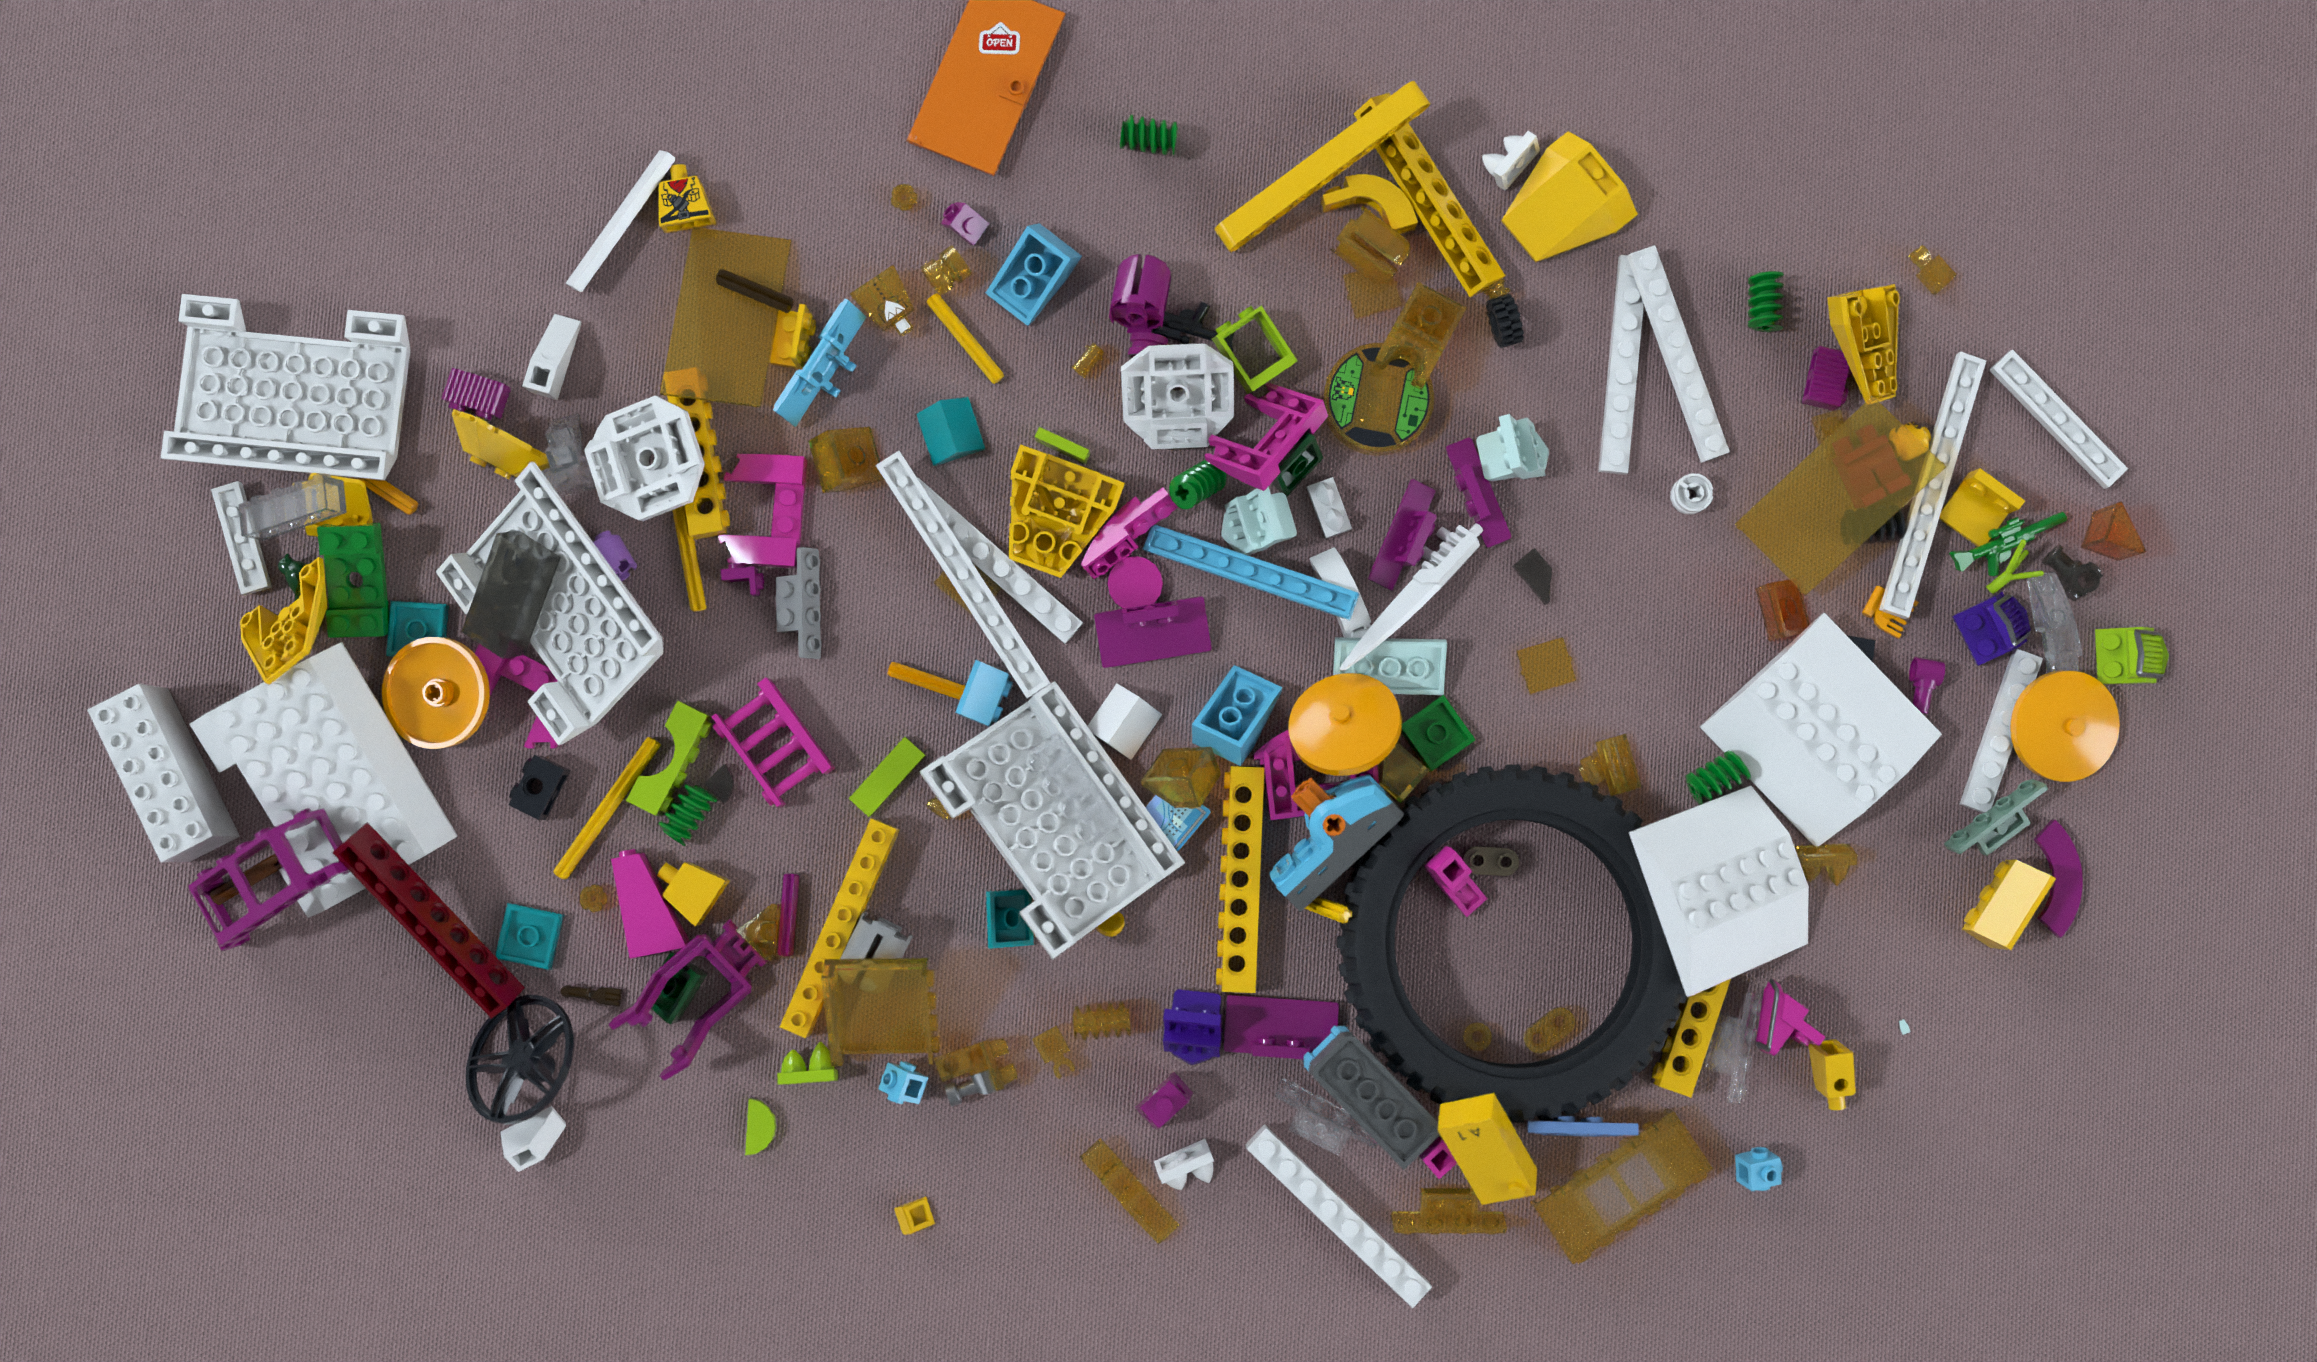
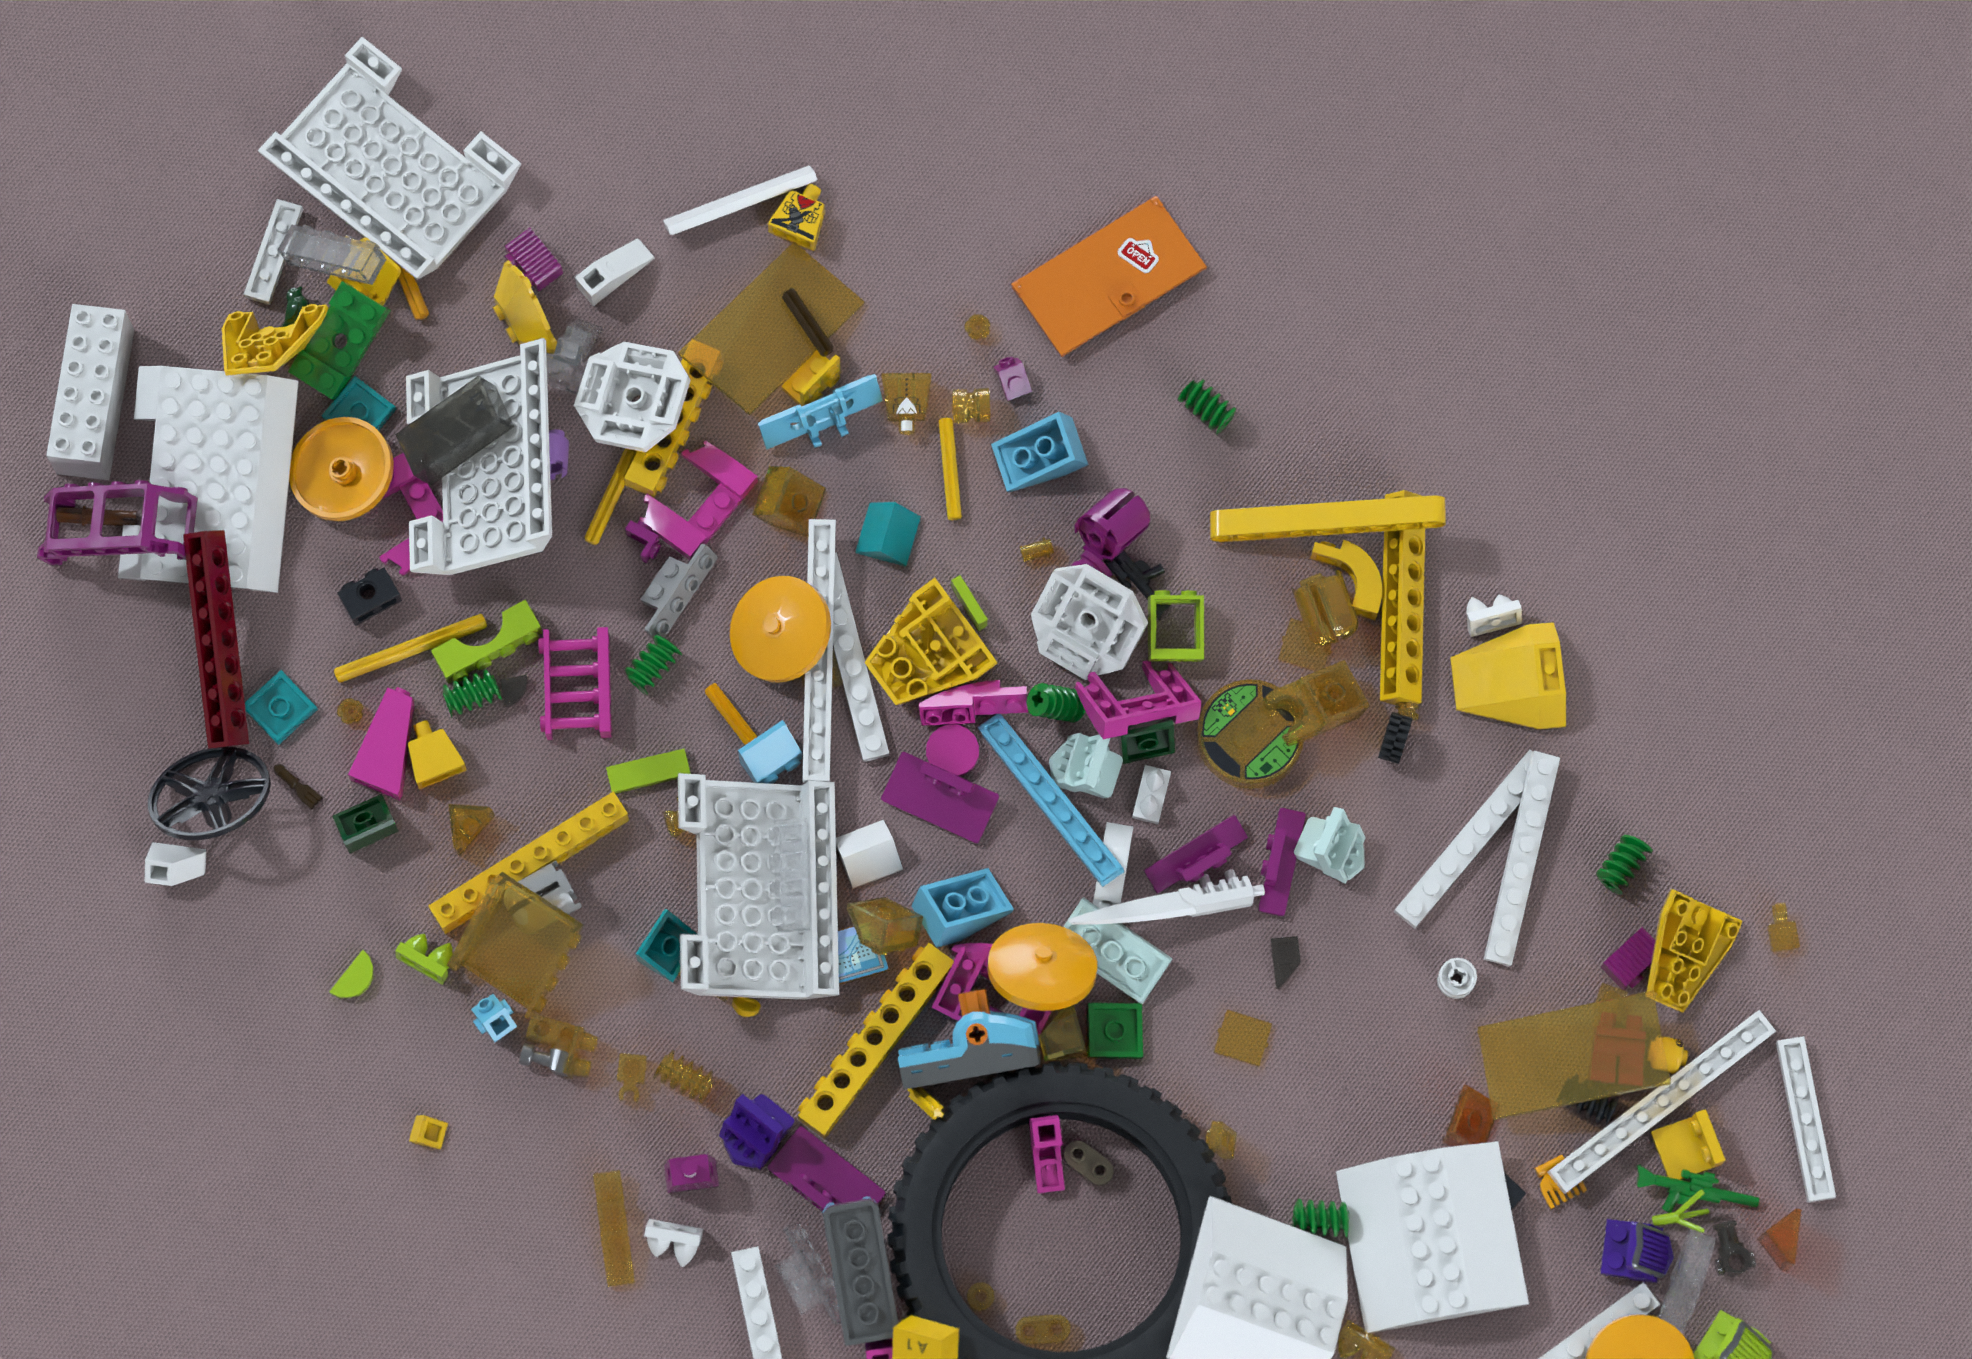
camera: 35 degrees right, 10 degrees down
(728, 958) = (424, 827): magenta piece -> none
(788, 914) = (494, 827): magenta axle -> none
(826, 682) = (651, 663): none -> green piece
(916, 578) = (780, 629): none -> light orange dish
(1618, 764) = (1246, 1153): clear yellow plate -> none
(1925, 676) = (1549, 1255): magenta pin -> none

